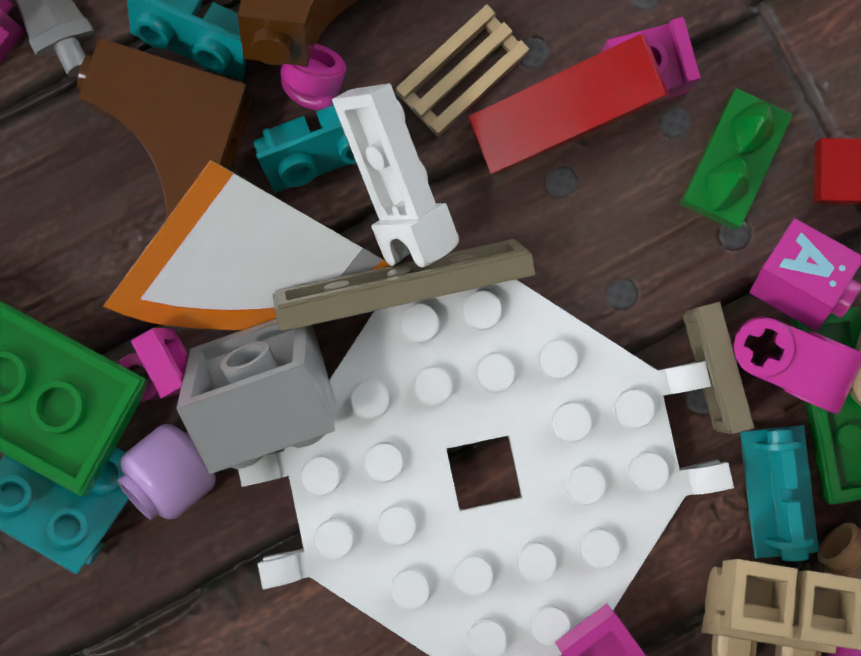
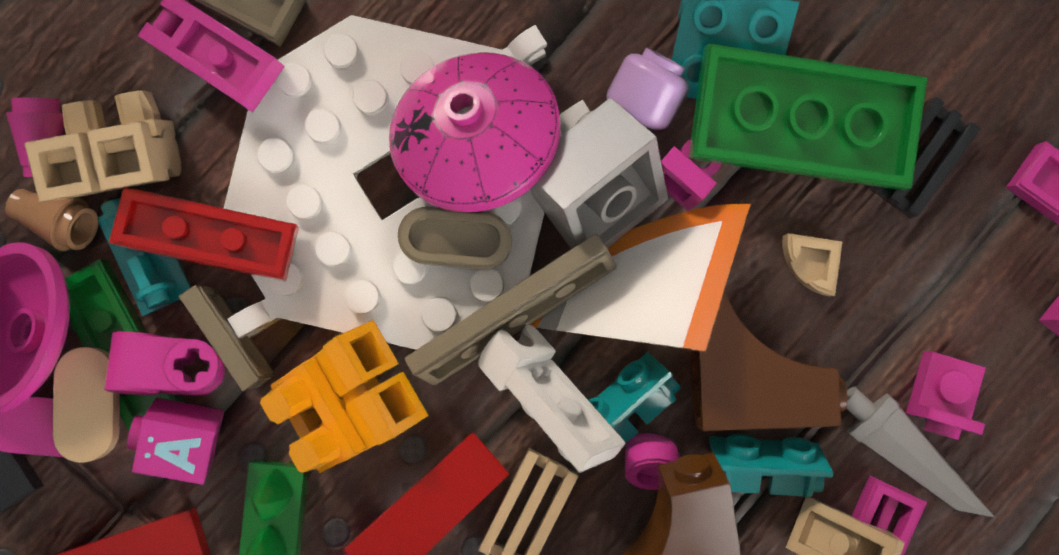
camera: 155 degrees right, 0 degrees up
(60, 223) = (813, 261): none -> tan tile
(365, 456) = (481, 155): none -> dark pink dish
(434, 383) = (455, 238): none -> dark tan tile
(619, 251) = (340, 403): none -> light orange hips
(704, 485) = (204, 234): none -> red tile

